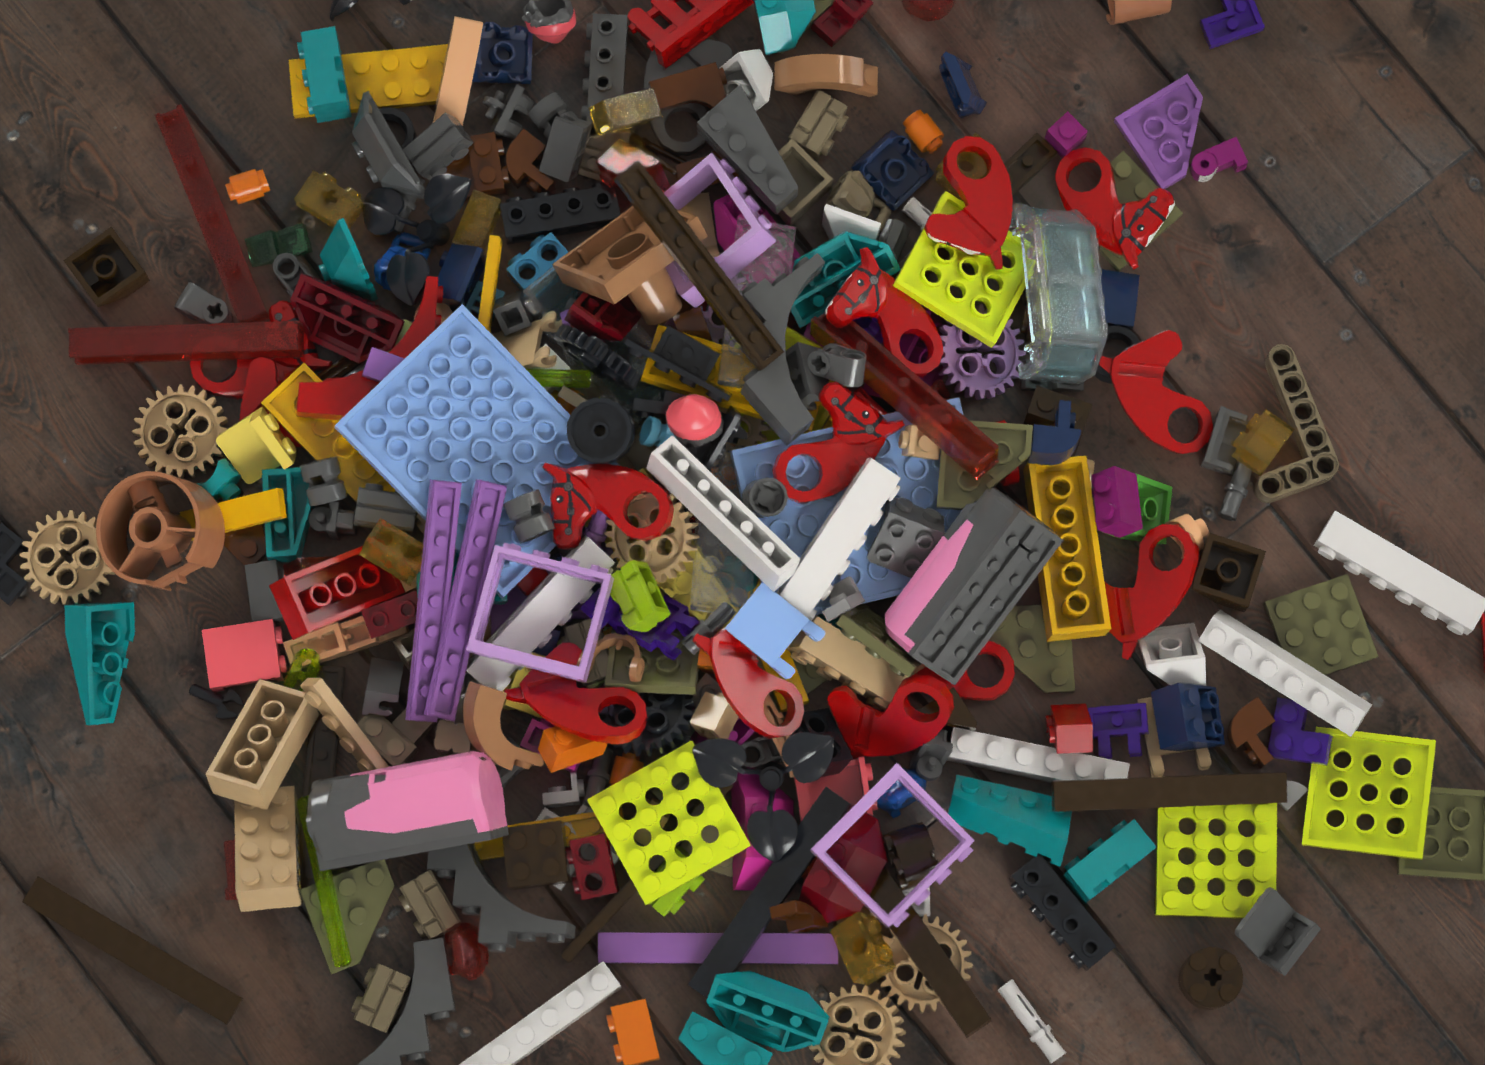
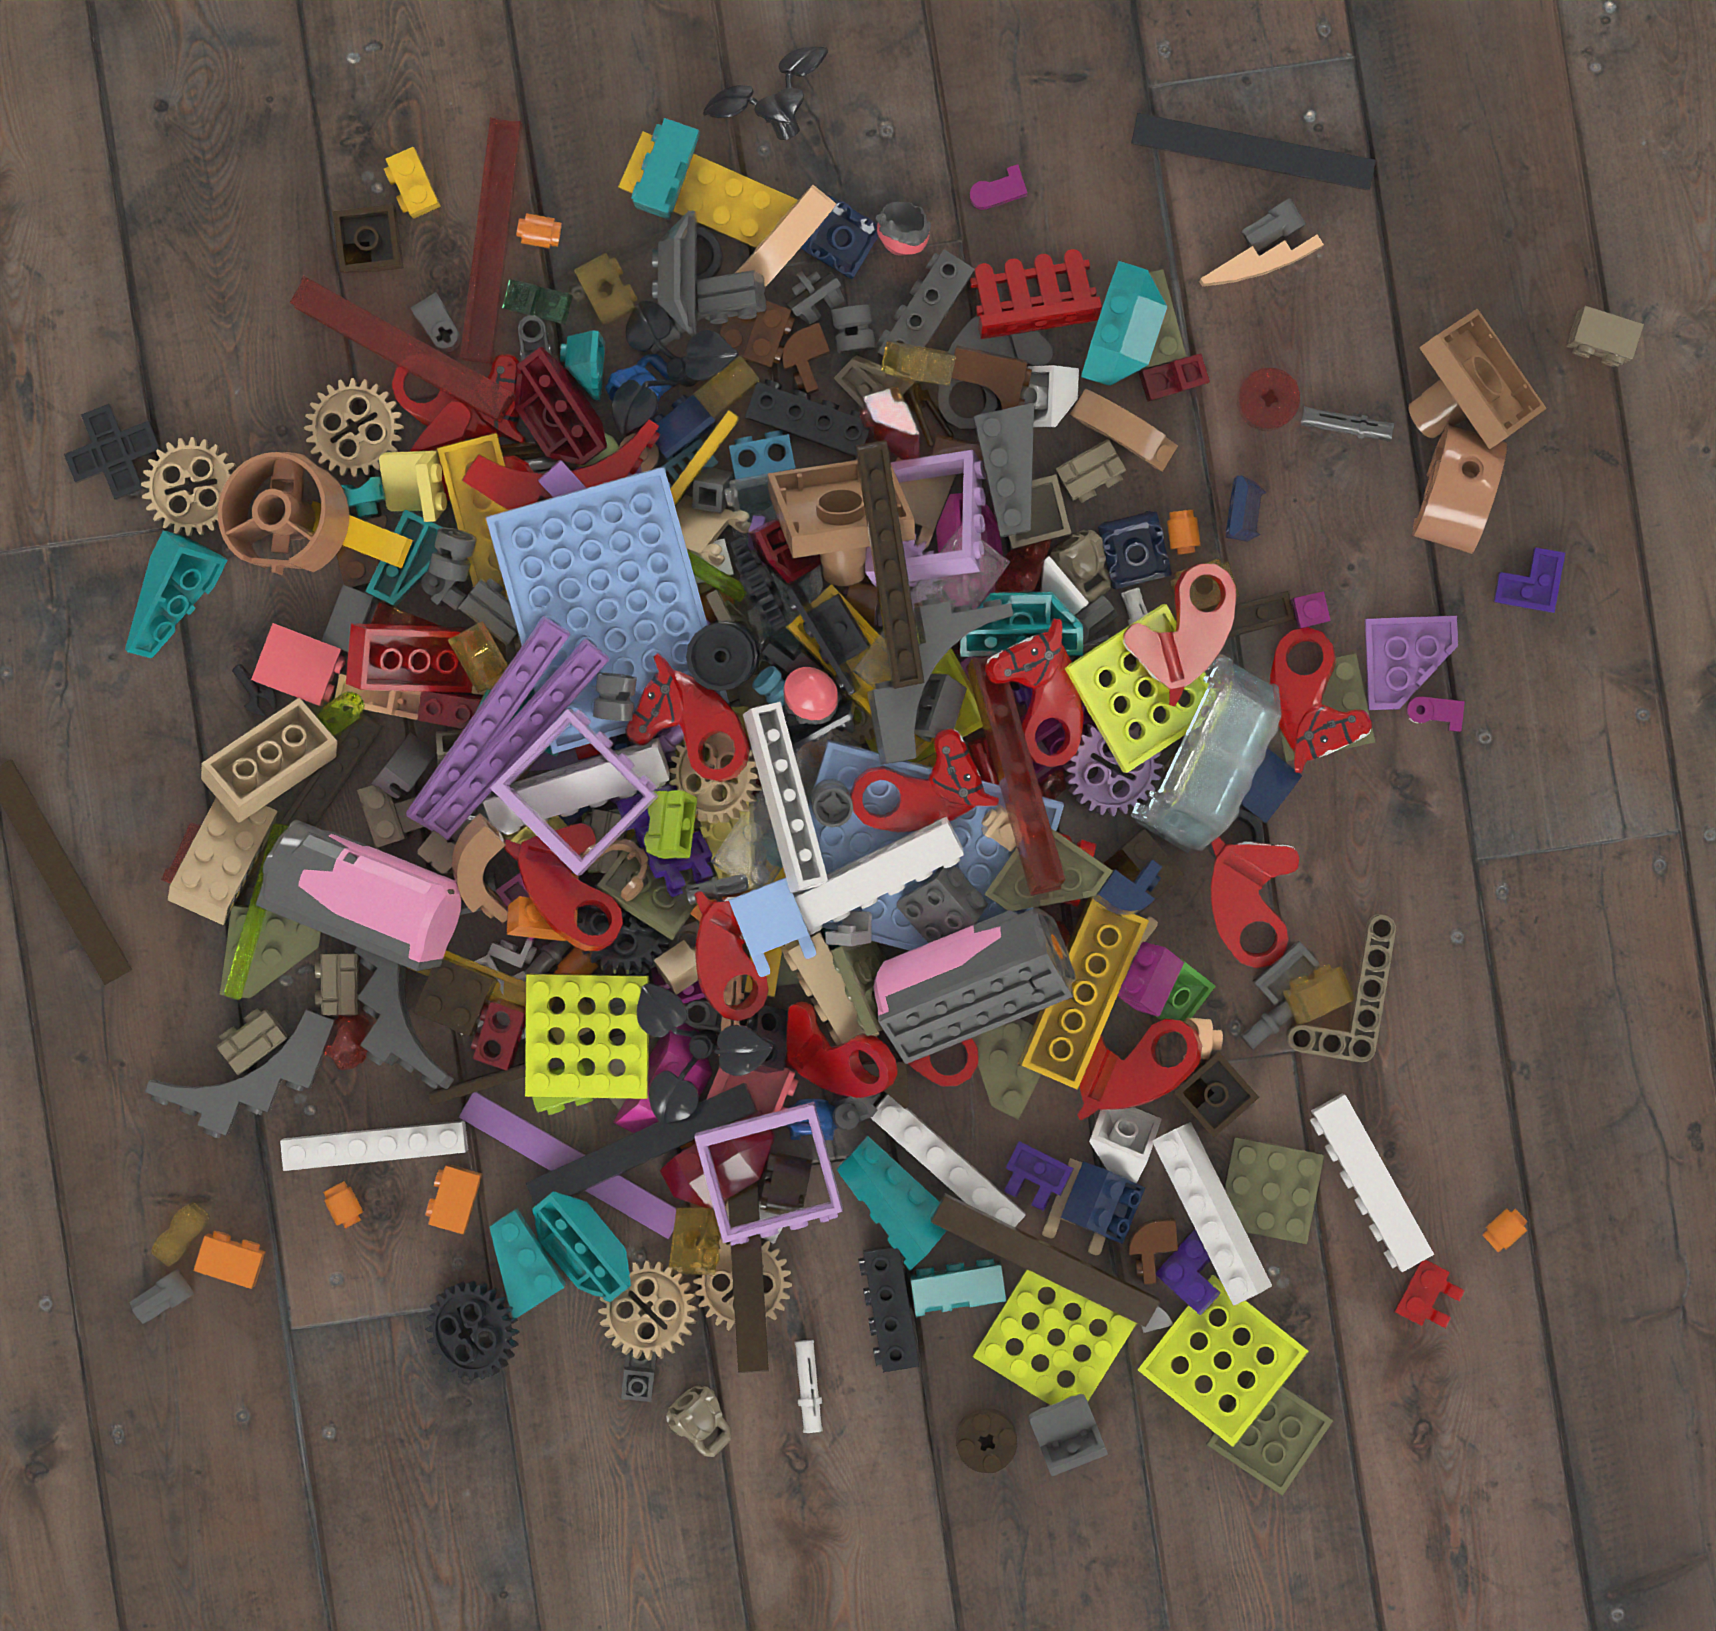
camera: 30 degrees right, 10 degrees up
(118, 204) = (413, 183): none -> yellow brick
(340, 721) = (347, 775): tan plate -> none
(565, 147) = (845, 364): dark grey hinge -> none
(798, 916) = (655, 1181): reddish brown slope -> none
(810, 228) = (1023, 569): none -> clear red hinge
(838, 364) = (973, 720): dark grey piece -> none
(1070, 728) = (991, 1153): red brick -> none

